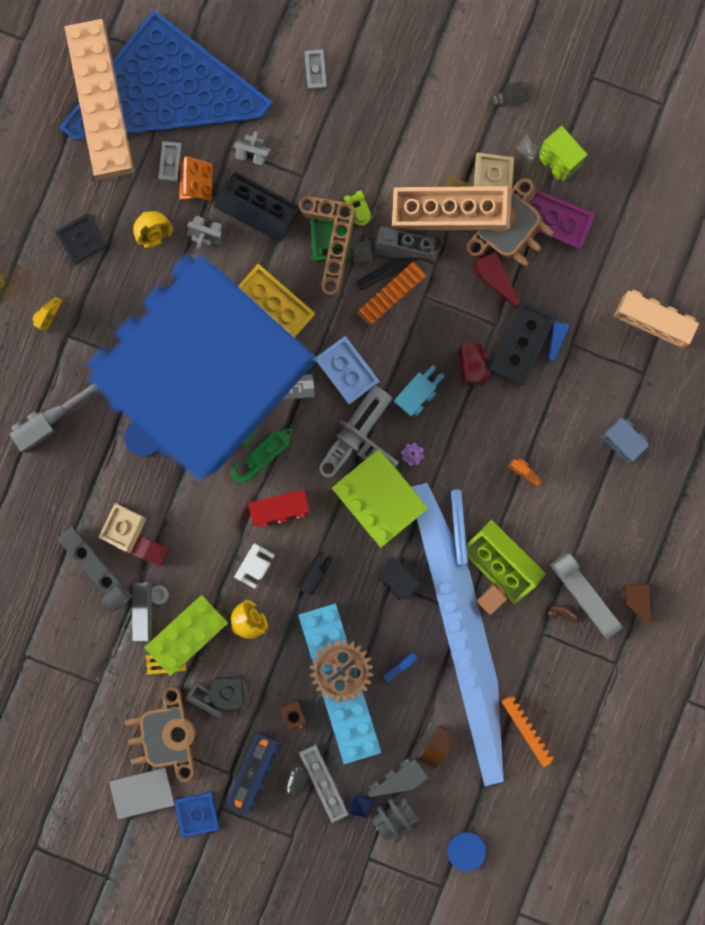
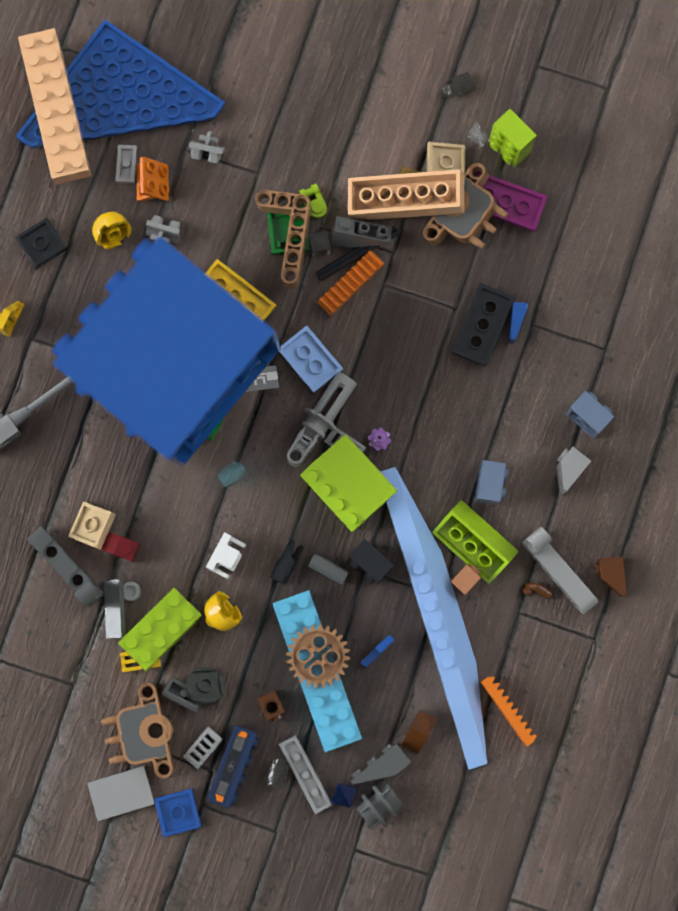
camera: 10 degrees left, 5 degrees down
(139, 441) = (109, 435): blue tile -> none
(235, 741) = (212, 734): none -> light grey slope
(256, 206) = (213, 204): black slope -> none
(263, 454) = (230, 446): green plate -> none
(263, 482) = (231, 473): none -> clear light blue brick
(279, 508) = (248, 499): red brick -> none
(315, 69) = (266, 69): light grey plate -> none
(356, 581) = (328, 568): none -> dark grey brick
(418, 392) = (381, 377): medium azure hinge -> none
(459, 528) = (429, 509): light blue axle -> none
(466, 851) = (453, 837): blue tile -> none
(472, 364) = (434, 346): dark red slope -> none
(494, 276) = (451, 260): dark red slope -> none
(520, 467) = (489, 448): orange wing -> none
(521, 504) = (490, 483): none -> sand blue brick
(601, 494) = (569, 468): none -> light grey slope
(656, 319) = (614, 294): light nougat brick -> none

